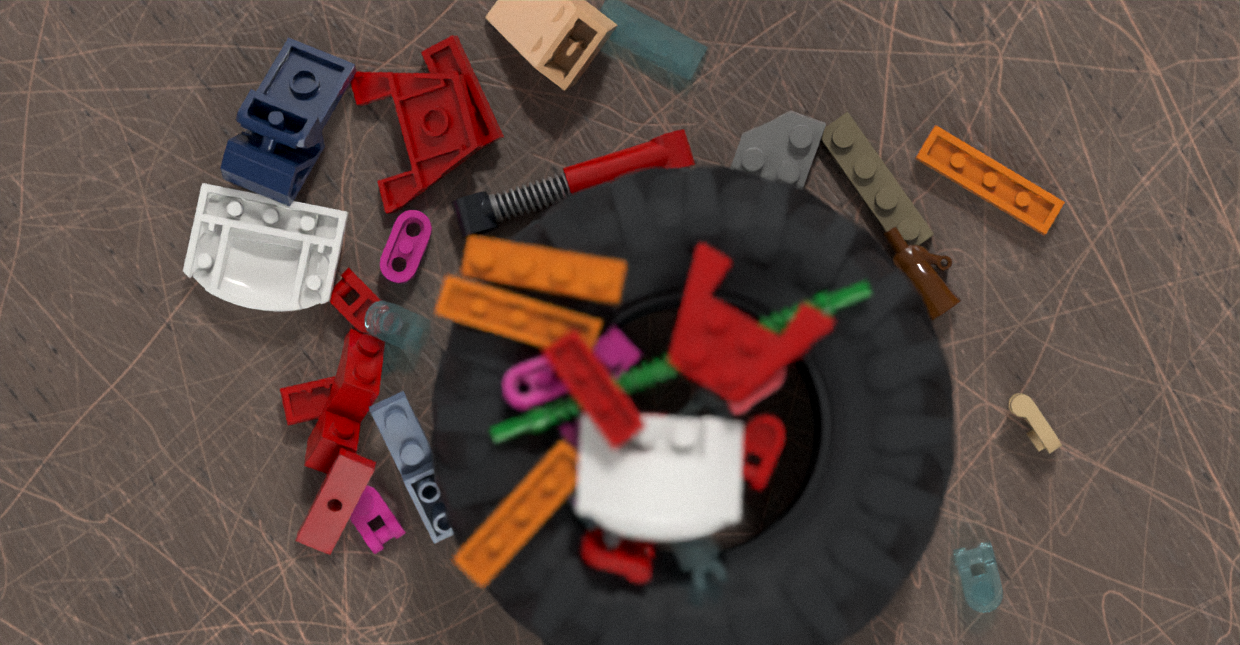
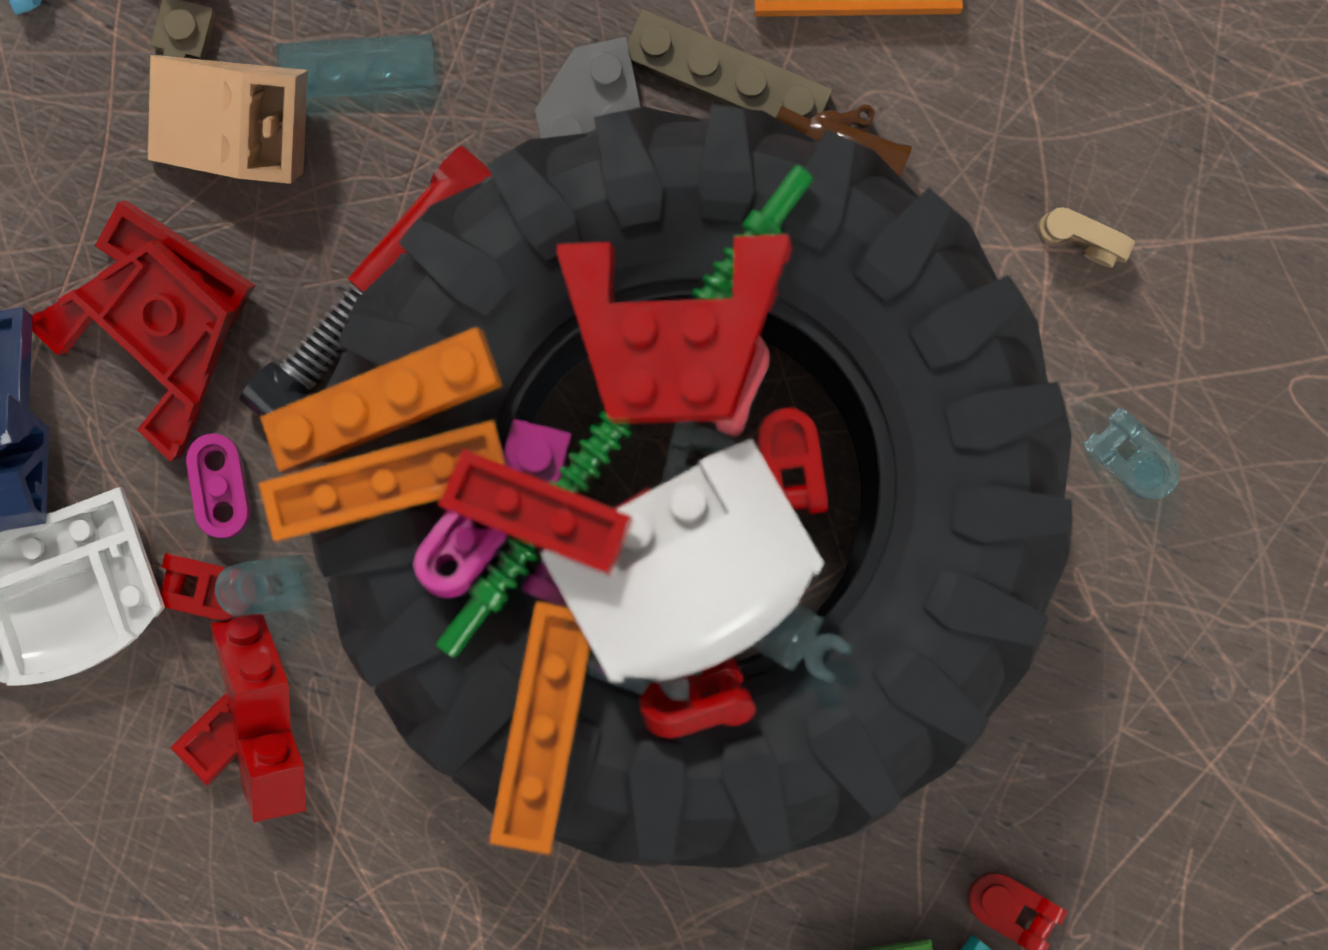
camera: 30 degrees left, 0 degrees up
(335, 501) = (317, 841): red tile -> none
(368, 508) = (357, 823): dark pink plate -> none
(414, 460) = (359, 719): sand blue slope -> none

